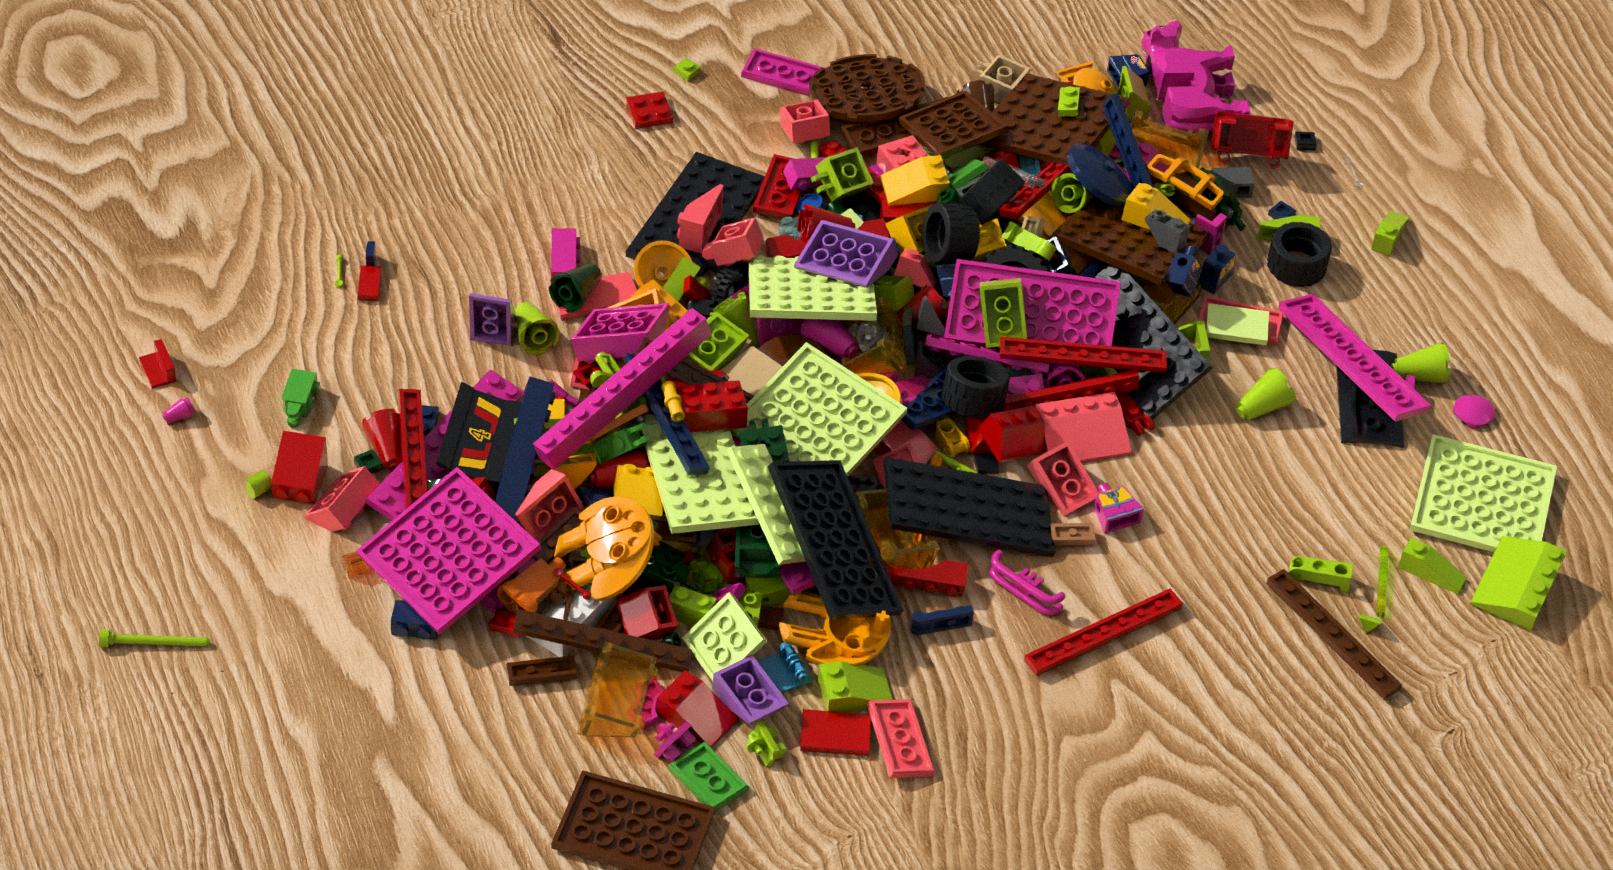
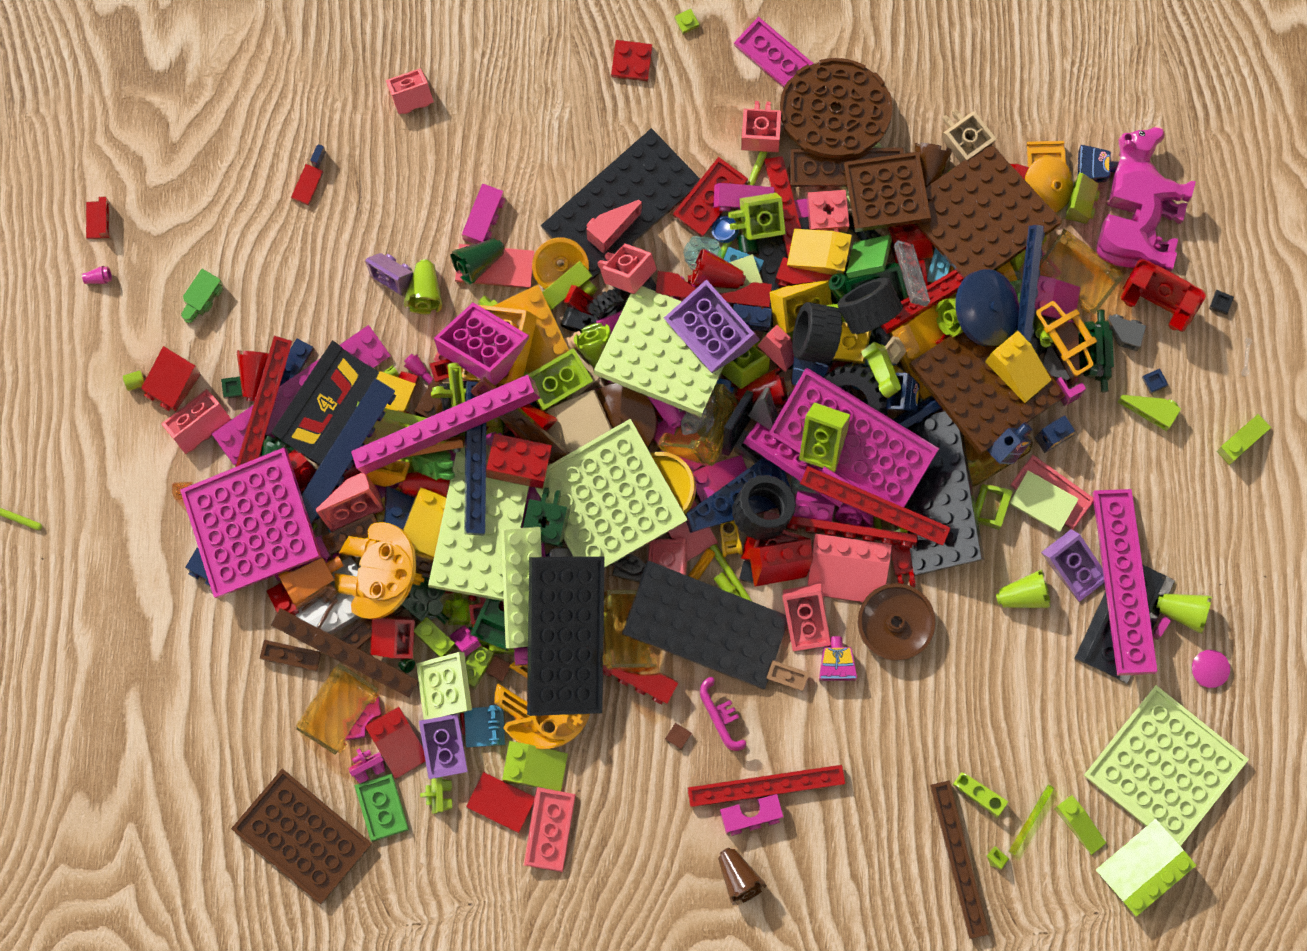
camera: 25 degrees right, 30 degrees up
(339, 283) = (282, 175): lime hinge -> none
(442, 184) = (409, 91): none -> coral slope
(559, 572) = (331, 577): red hinge -> none
(673, 401) = (482, 453): yellow pin -> none
(941, 620) = (634, 724): dark blue plate -> none
(989, 618) = (678, 736): none -> copper tile
(1069, 101) = (1003, 205): lime plate -> none
(1091, 669) = (735, 821): none -> dark pink arch
(1124, 713) = (739, 877): none -> reddish brown cone
(1154, 455) = (896, 622): none -> reddish brown dish
(1168, 231) = (1013, 398): dark grey slope -> none
(1295, 269) = (1152, 424): black tyre -> none
(1299, 363) = (1075, 564): none -> medium lavender slope

